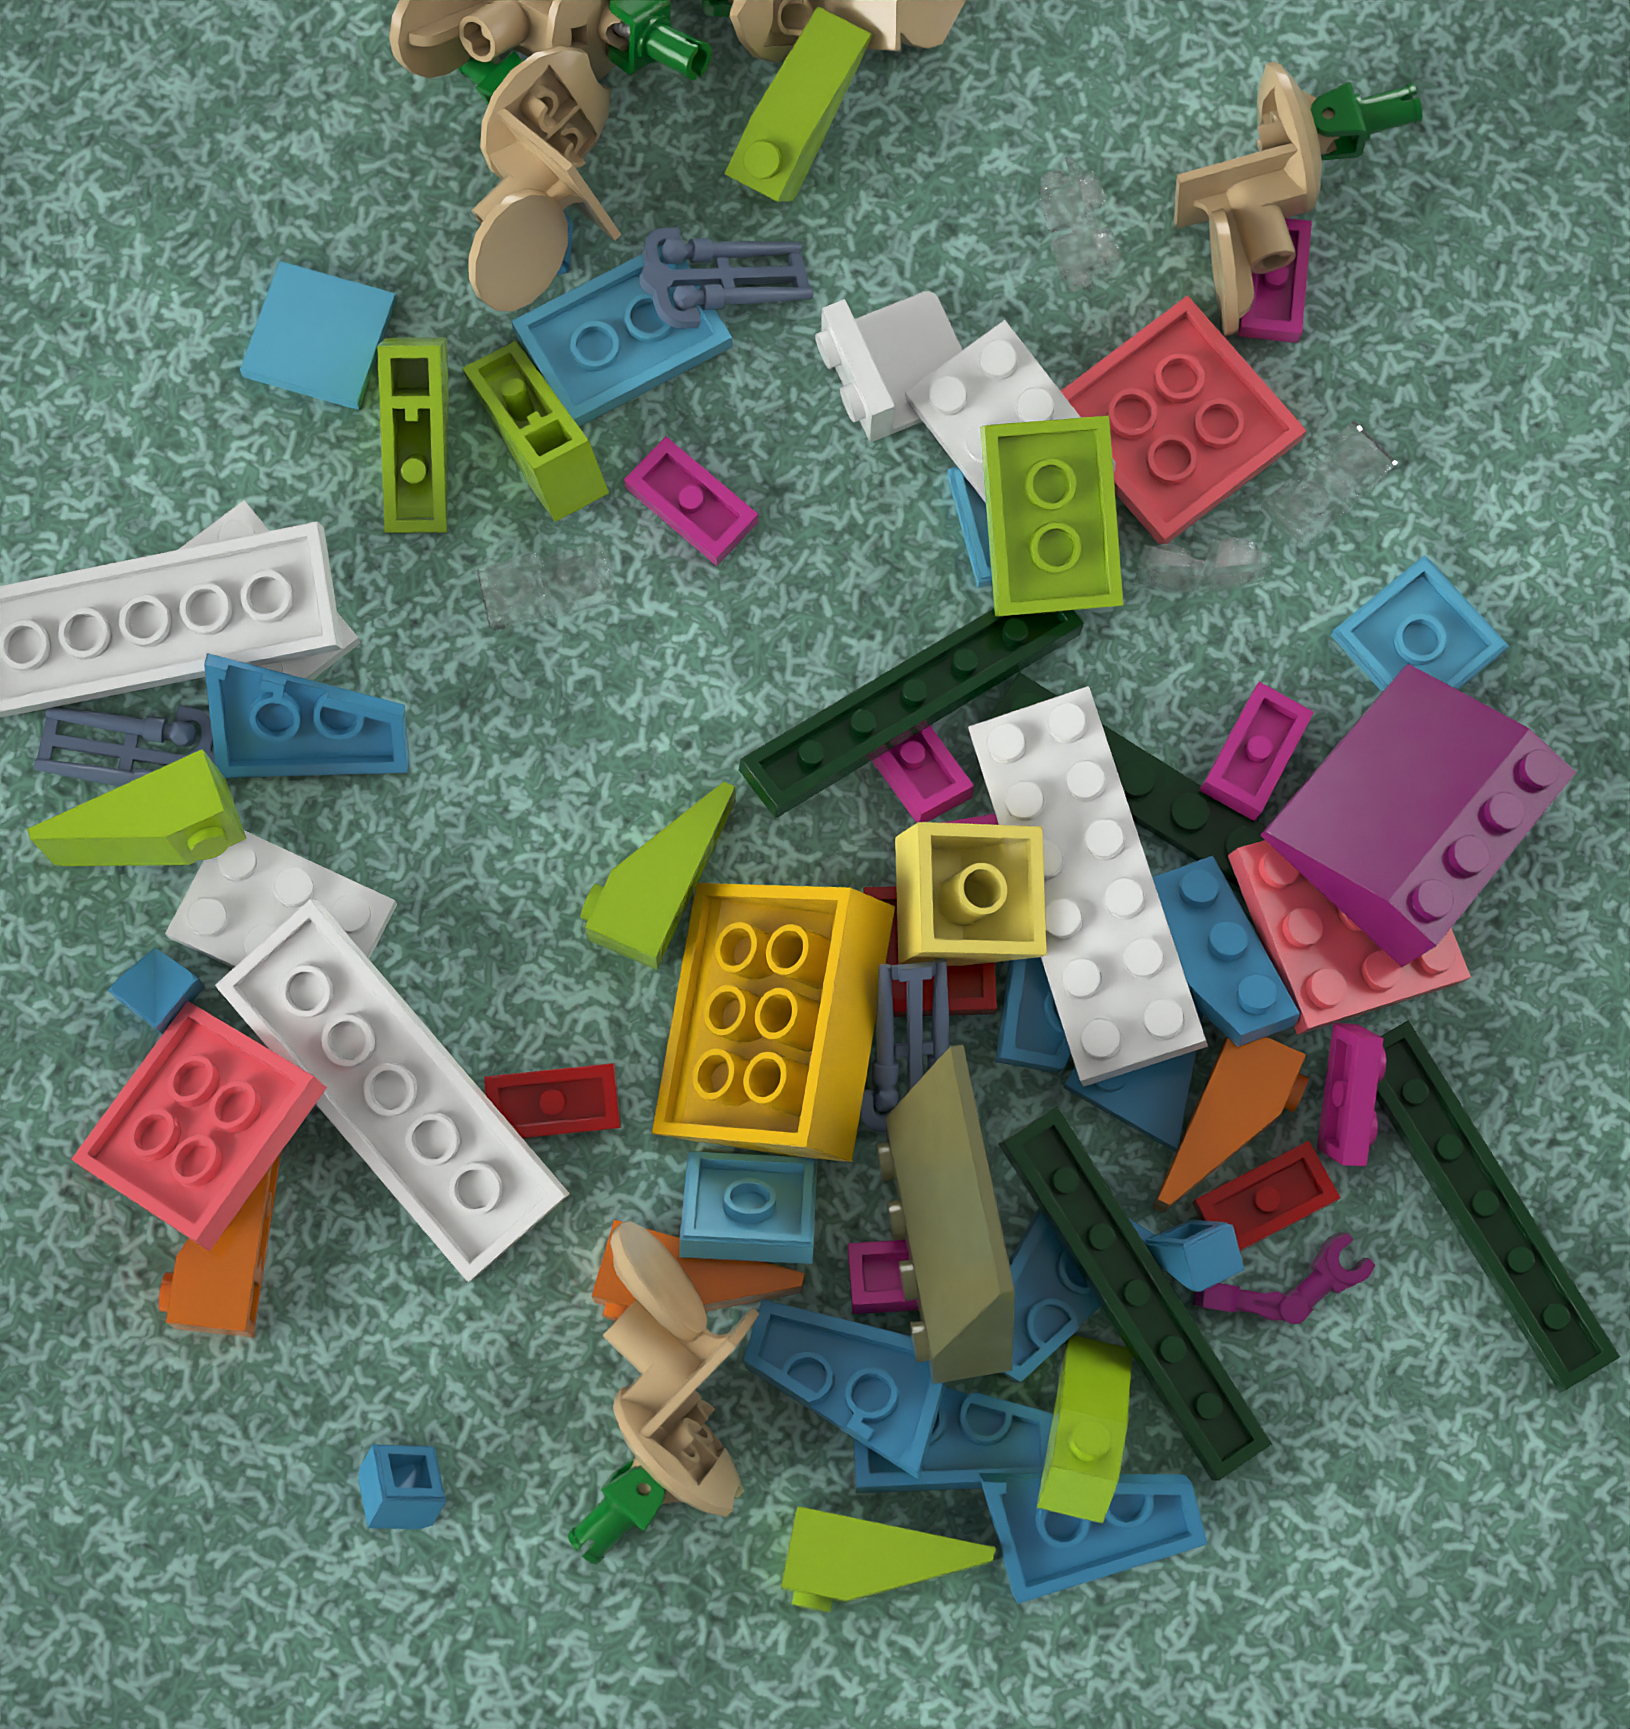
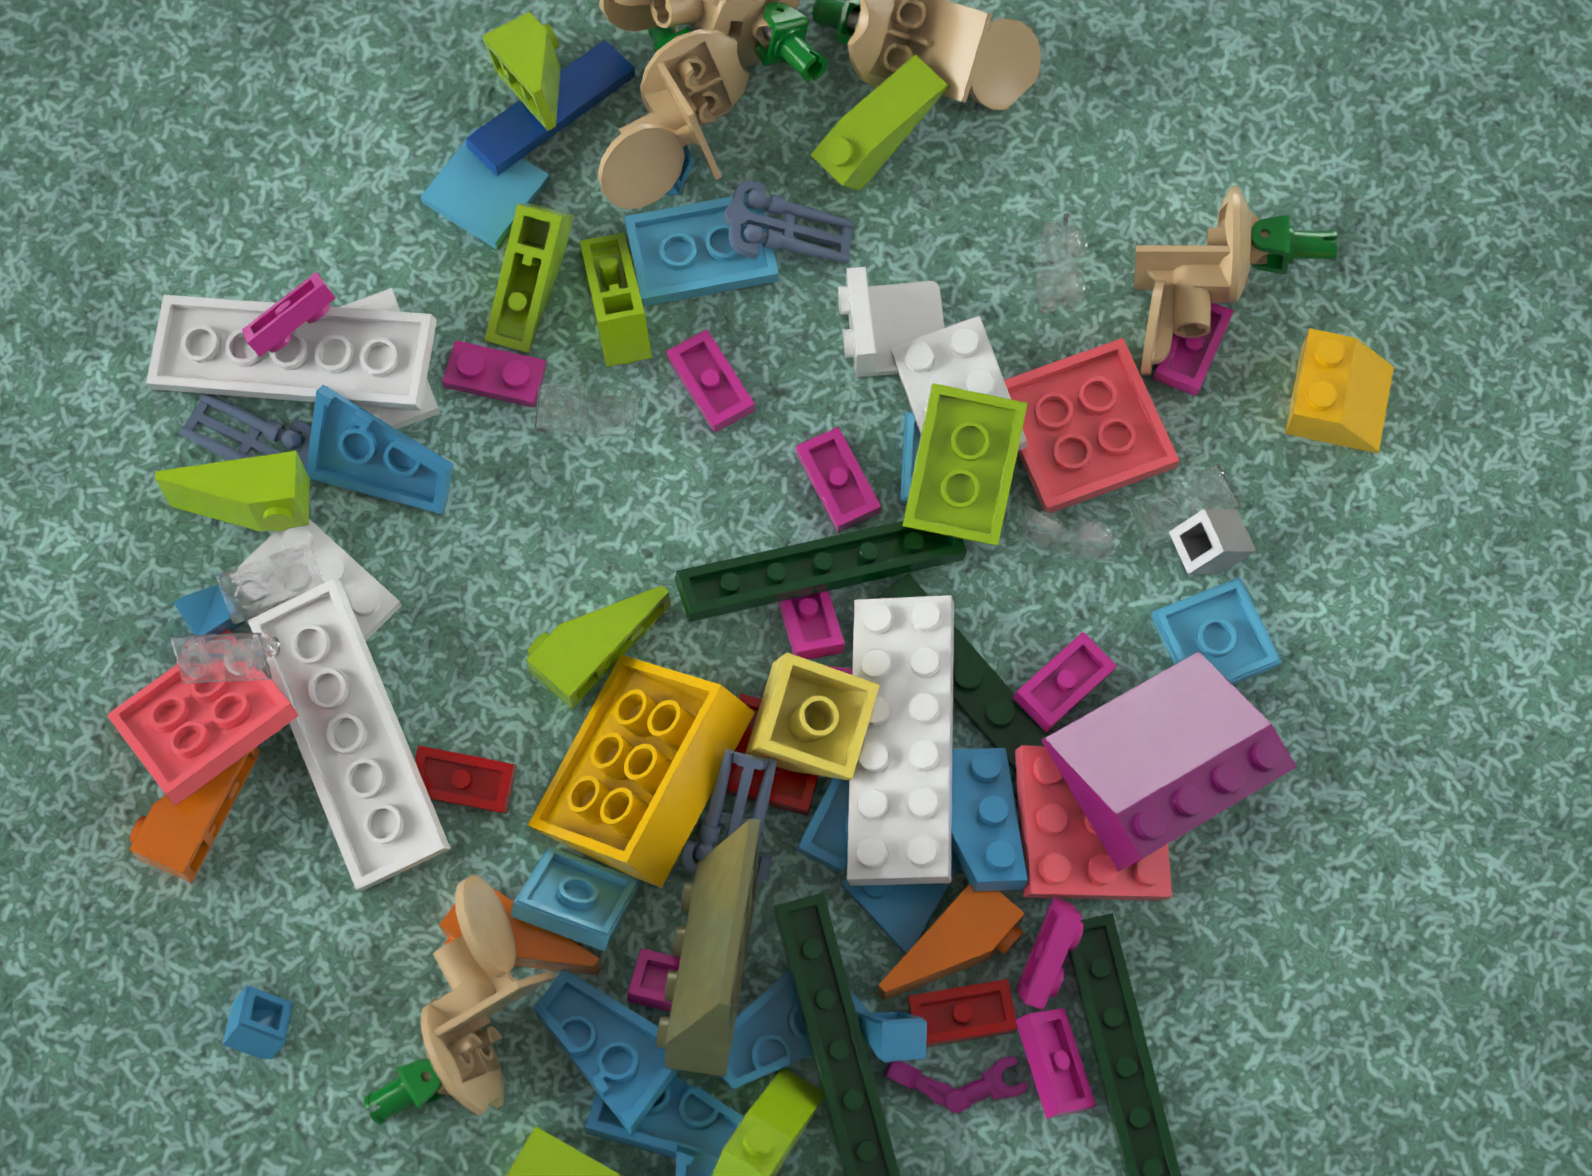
camera: 20 degrees right, 5 degrees down
(122, 590) = (275, 326): none -> dark pink plate
(204, 1041) = (225, 657): none -> clear hinge
(226, 927) = (269, 581): none -> clear plate
(319, 155) = (528, 64): none -> lime slope
(367, 205) = (581, 87): none -> blue tile
(413, 572) = (494, 373): none -> dark pink plate
(893, 579) = (838, 479): none -> dark pink plate
(1381, 521) = (1212, 541): none -> light grey brick
(1398, 1225) = (1055, 1063): none -> dark pink plate
(1470, 287) = (1339, 392): none -> yellow slope

